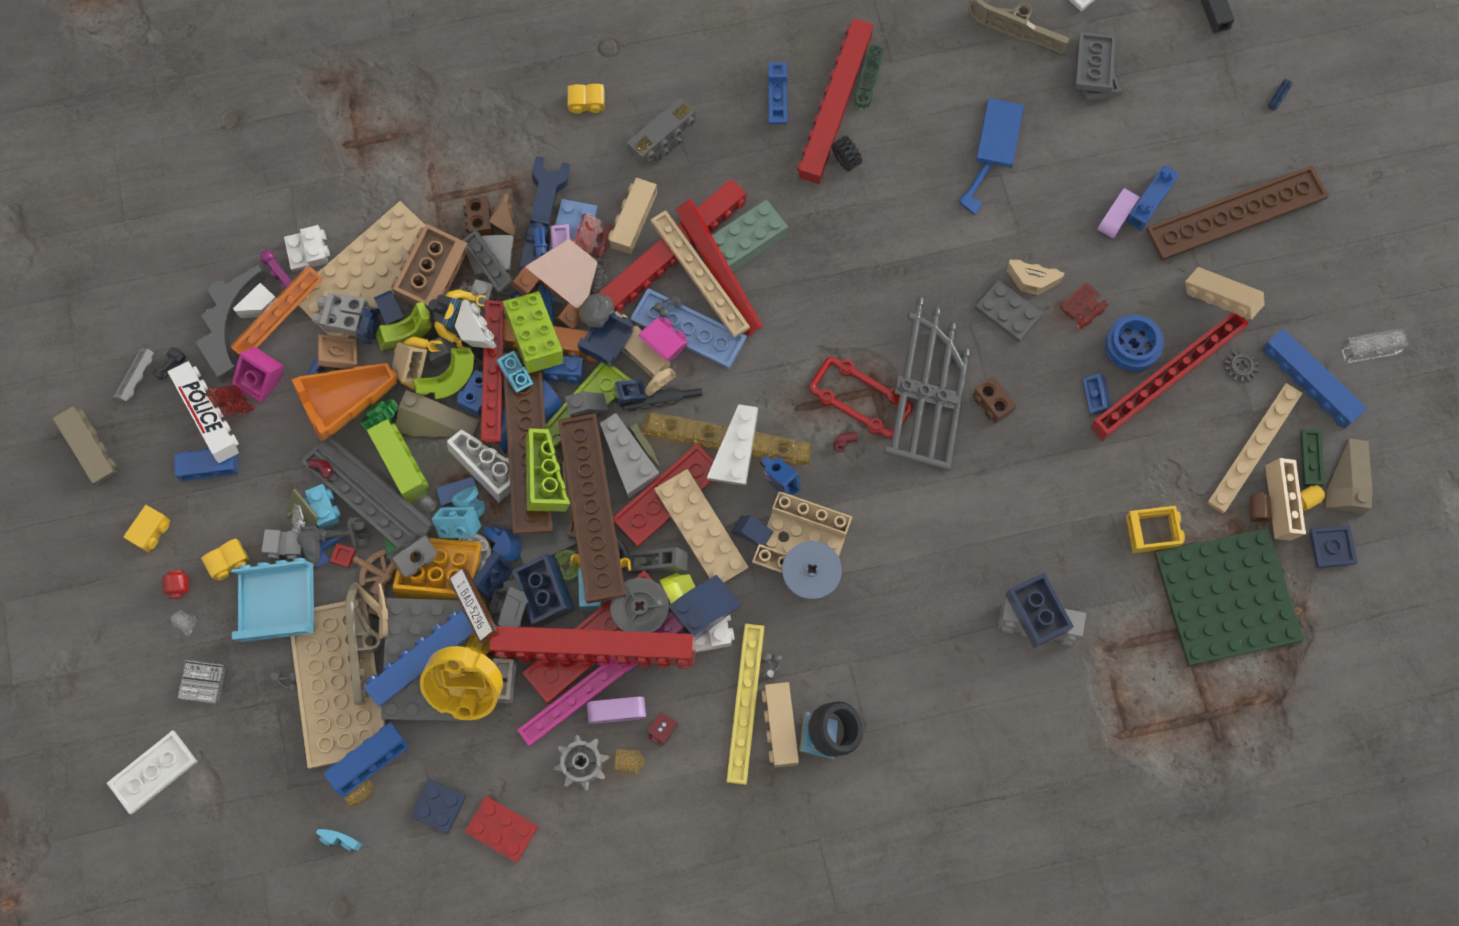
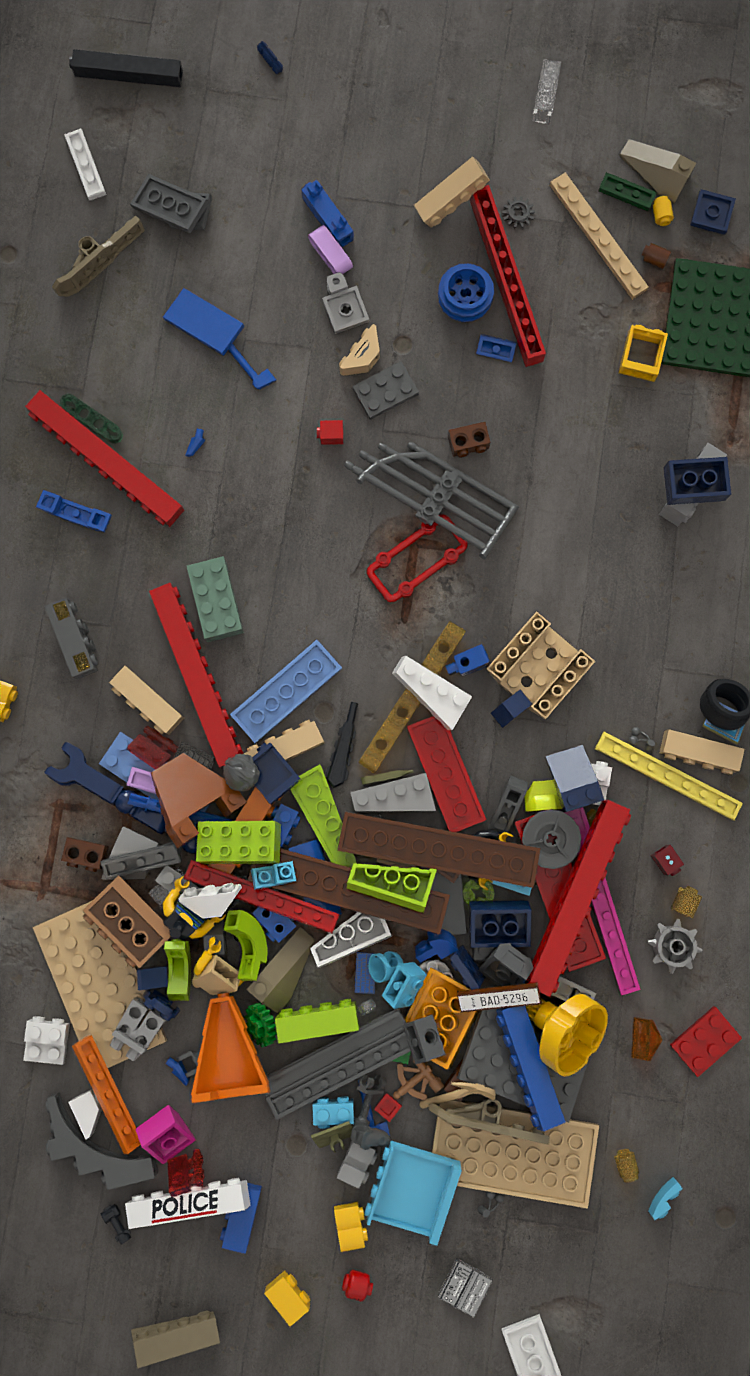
camera: 70 degrees left, 10 degrees up
(134, 375) = (115, 1265): light grey plate -> none
(183, 622) = (398, 1288): clear brick -> none
(268, 258) = (41, 1084): magenta plate -> none
(297, 519) = (342, 1142): clear bar -> none
(323, 465) = (292, 1098): dark red arm -> none
(336, 351) = (176, 1046): medium nougat plate -> none
(366, 760) = (604, 1149): blue brick -> none
(438, 806) = (664, 1093): dark blue plate -> none
(484, 770) = (645, 1039): none -> clear orange slope
(502, 215) = (94, 829): medium nougat slope -> none
(586, 403) = (330, 817): dark grey slope -> none
(616, 710) = (635, 896): lavender beam -> none
(629, 391) = (332, 771): dark blue slope -> none
(659, 379) = (328, 737): tan plate -> none
(663, 311) = (262, 708): dark grey piece -> none
(664, 338) = (294, 718): dark pink slope -> none
(700, 274) = (237, 659): tan tile -> none
(700, 527) = (491, 754): tan plate -> none
(716, 263) = (238, 638): red tile -> none
(812, 585) = (584, 654): sand blue piece -> none
(842, 440) = (452, 590): dark red arm -> none
(846, 153) = (167, 471): black tyre -> none
(885, 169) = (195, 443): none -> blue bar
(945, 277) = (330, 432): none -> red brick
(1077, 236) = (343, 296): none -> light grey plate
(1079, 301) = (403, 324): clear red plate -> none
(1236, 213) = (372, 149): reddish brown plate -> none
(1285, 499) = (659, 230): tan brick -> none
(1314, 378) = (556, 156): blue brick -> none

